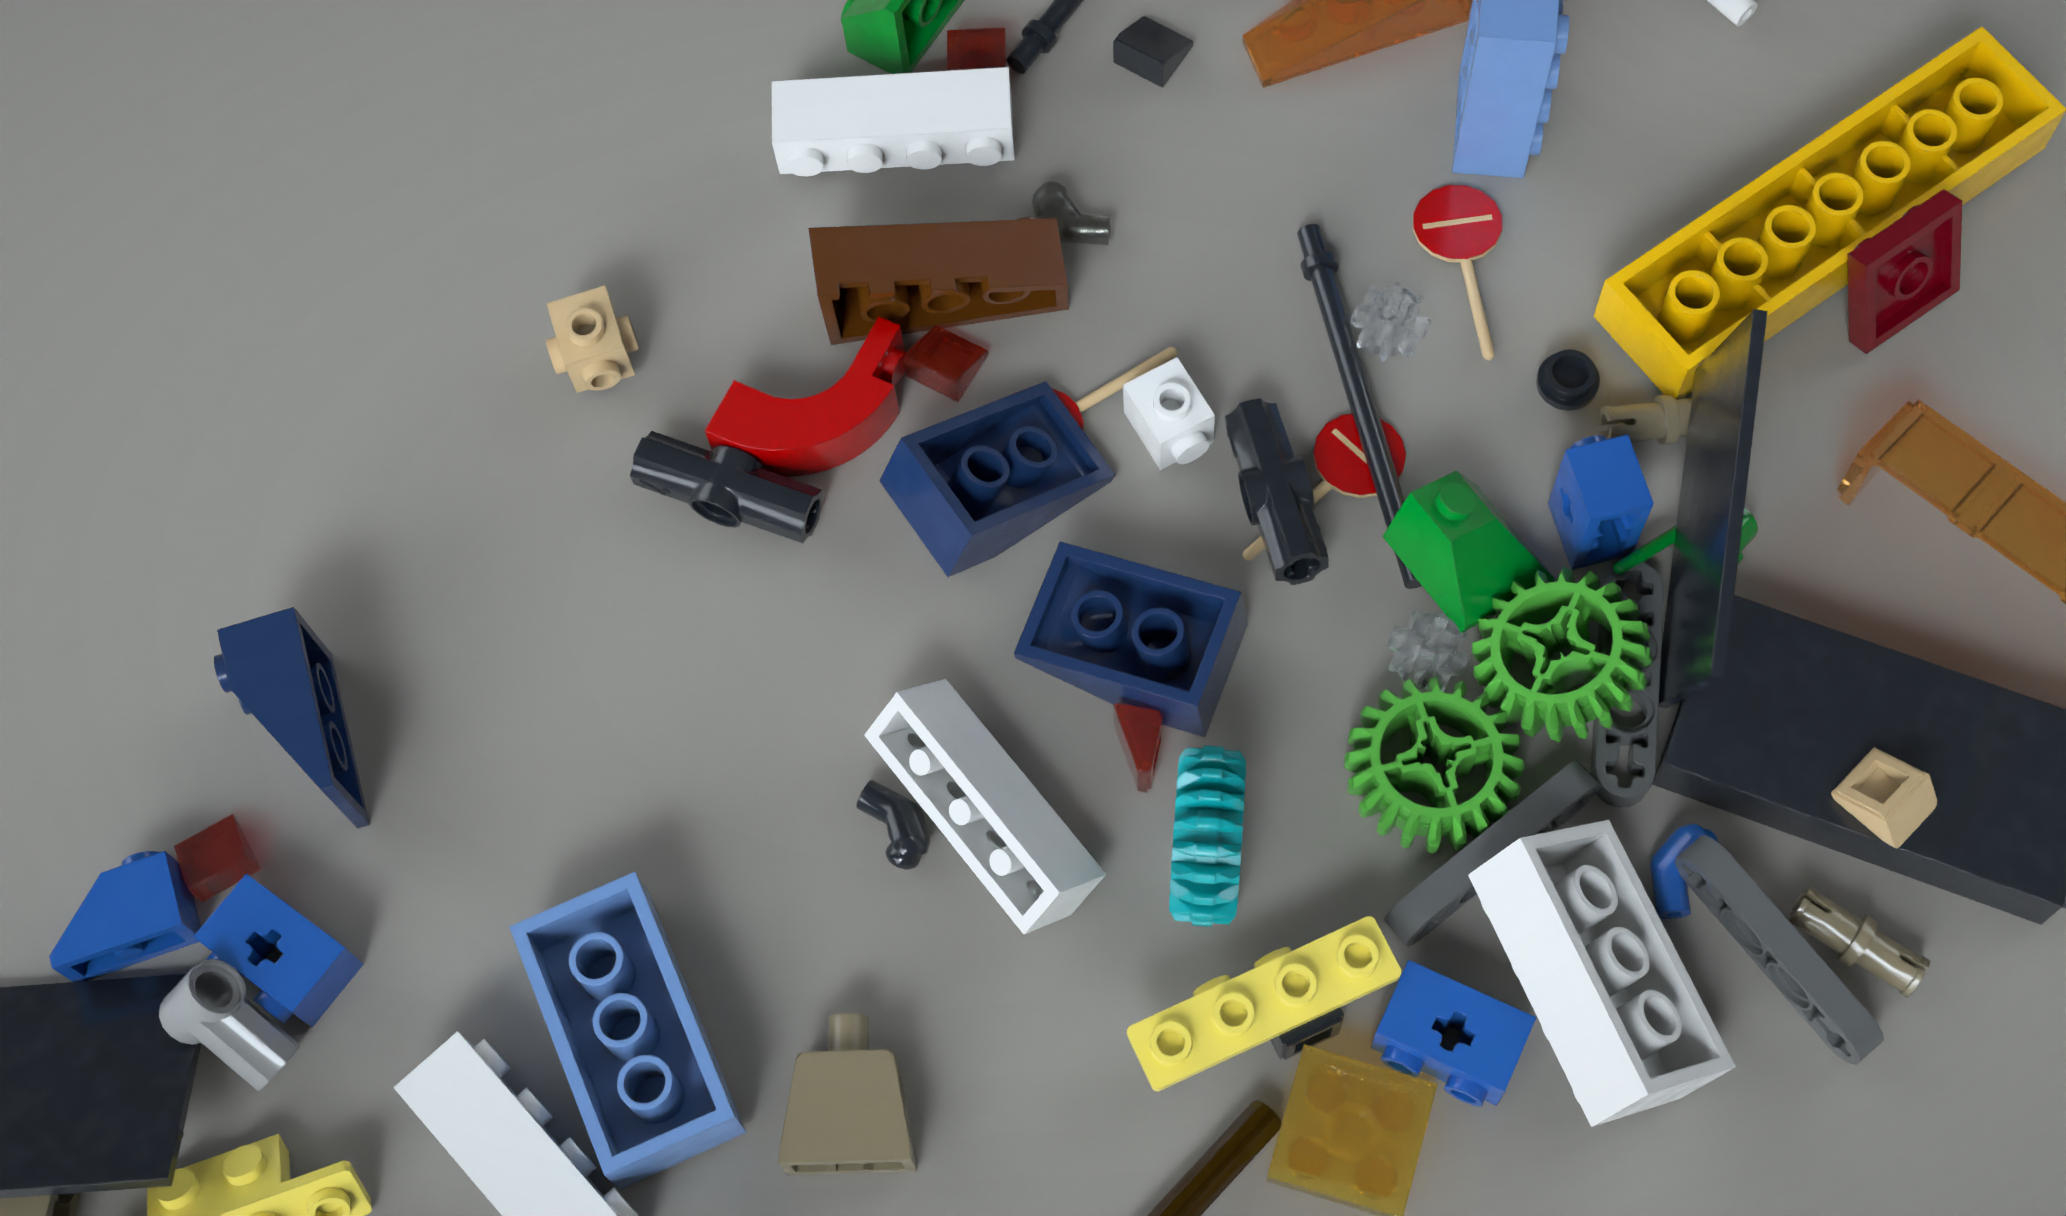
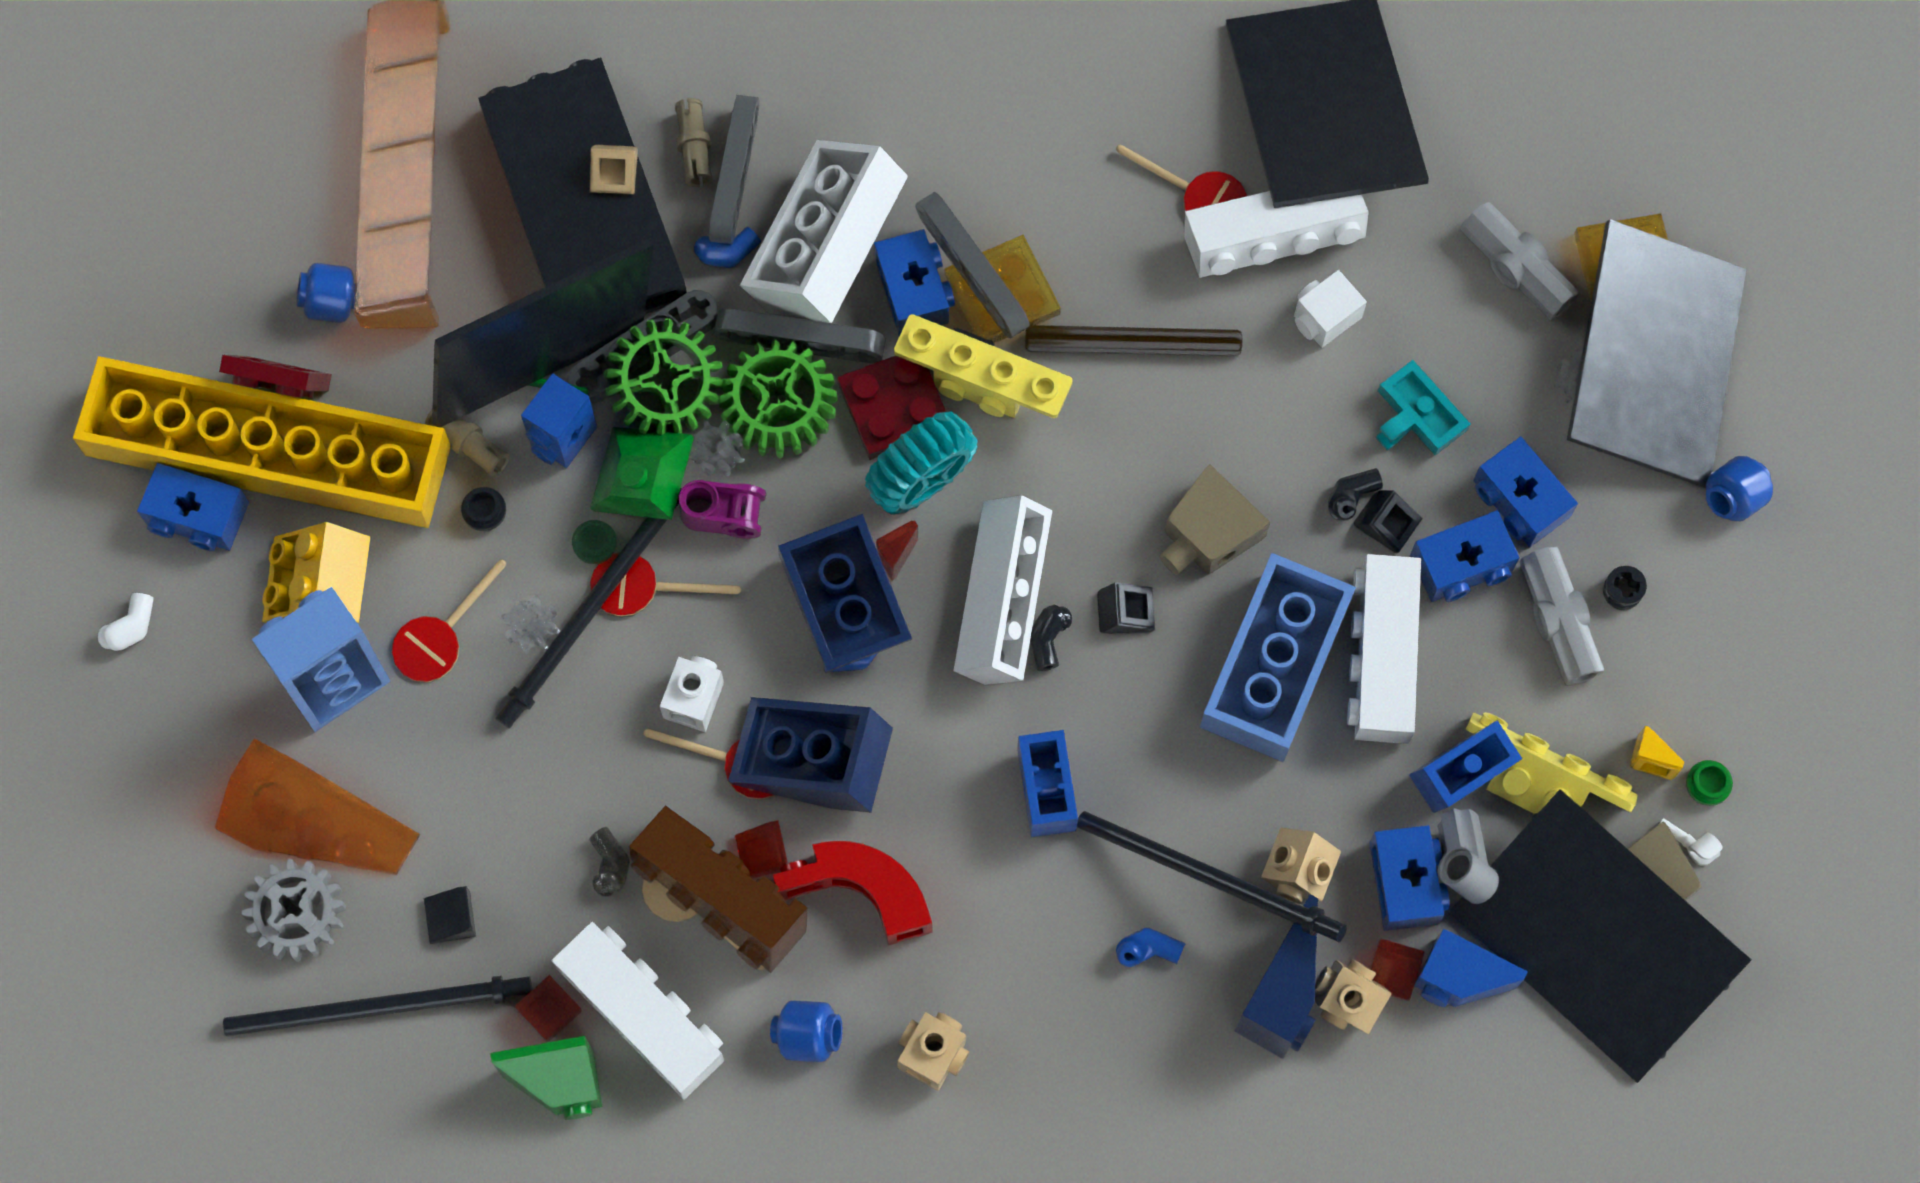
camera: 140 degrees left, 5 degrees up
(225, 773) = (1362, 1005): none -> tan brick
(299, 748) = (1311, 919): none -> black bar
(309, 1112) = (1465, 767): none -> blue slope
(398, 847) = (1300, 865): none -> tan brick
(492, 637) = (1146, 944): none -> blue arm
(727, 253) = (806, 1031): none -> blue head
(727, 486) = (948, 895): black piece -> none
(733, 665) = (1047, 783): none -> blue brick
(849, 936) = (1125, 608): none -> black slope
(1276, 492) = (691, 596): black piece -> none
(1316, 883) = (888, 400): none -> dark red plate
(1345, 613) = (725, 509): none -> magenta piece
(1407, 1104) = (972, 265): none -> dark grey beam
(1431, 455) = (594, 542): none -> clear green plate
(1624, 166) = (315, 561): none -> yellow slope
(1803, 104) = (175, 491): none -> blue brick
(1977, 398) = (326, 292): none -> blue head

